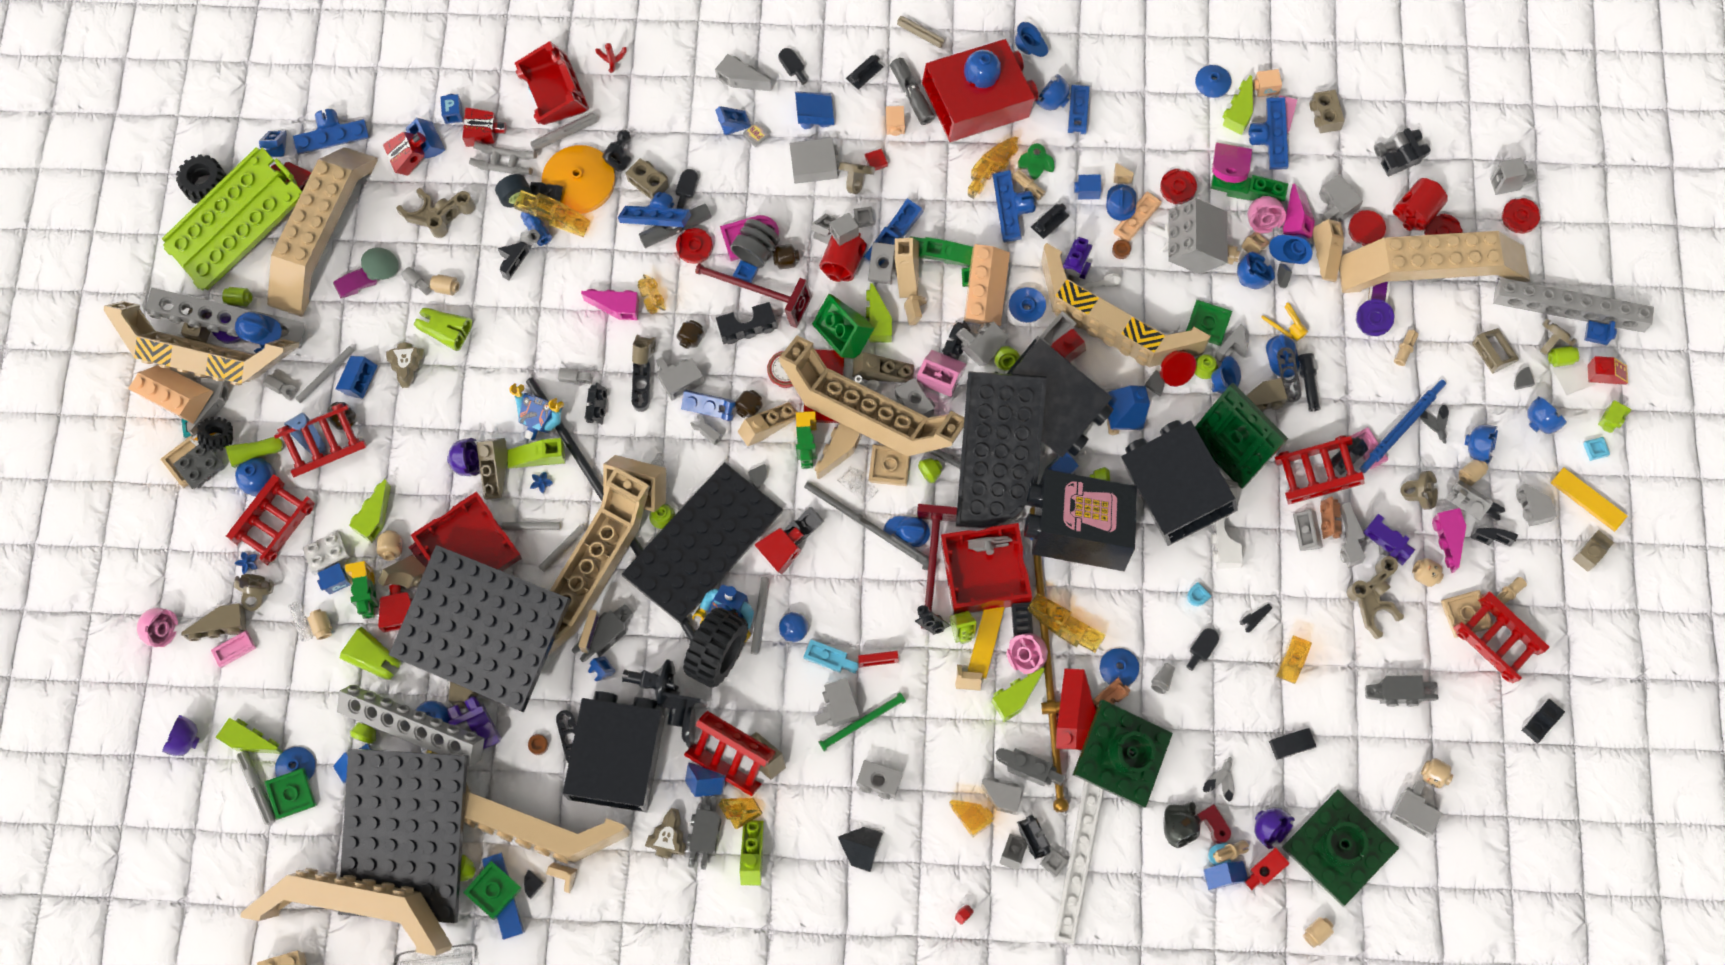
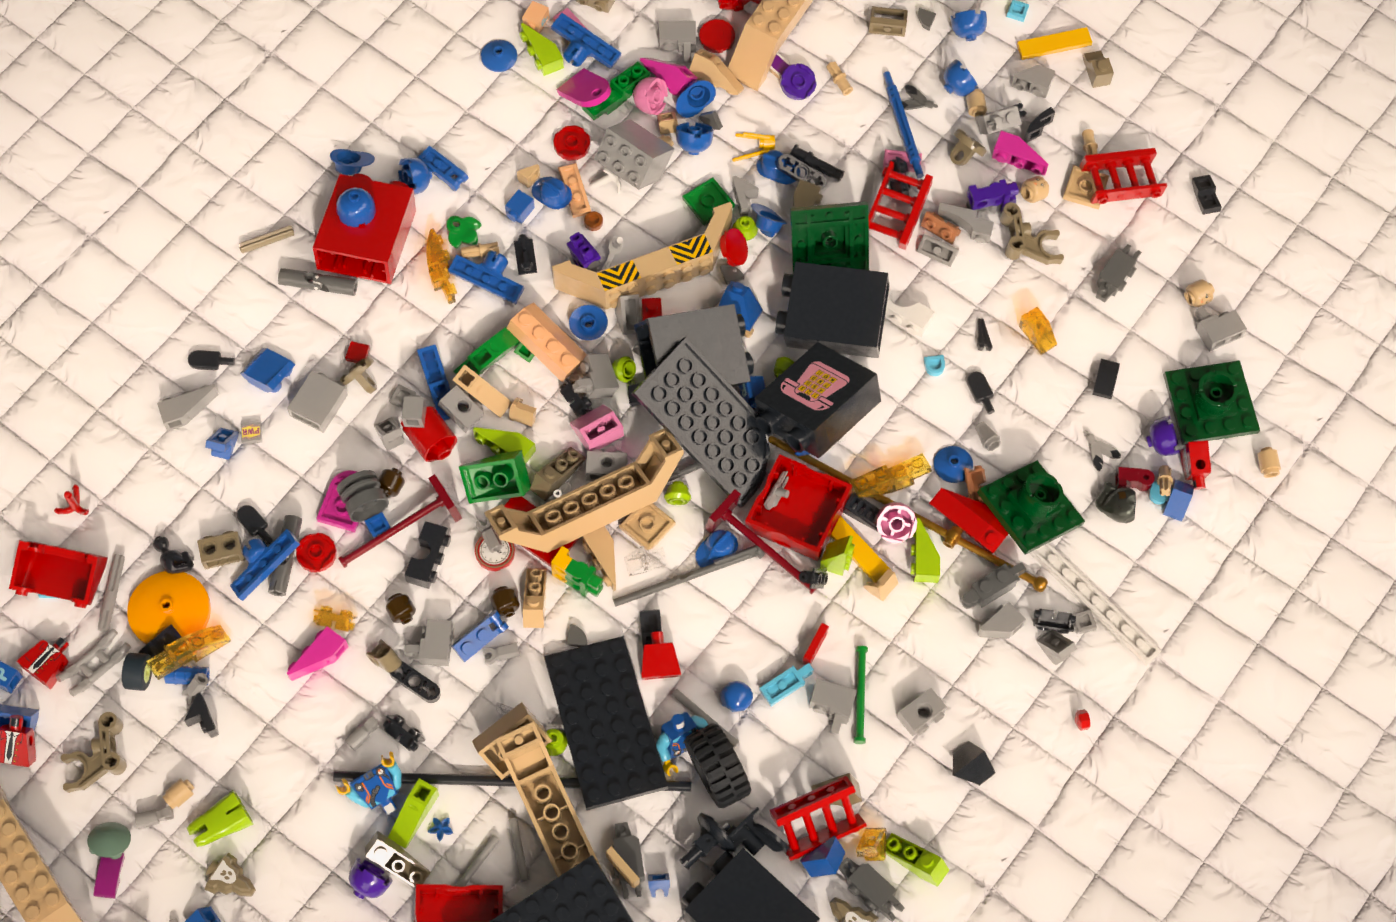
camera: 60 degrees left, 5 degrees down
(865, 72) = (266, 306): black hinge -> none
(895, 120) = (334, 312): light nougat brick -> none
(972, 816) = (1004, 659): clear yellow slope -> none

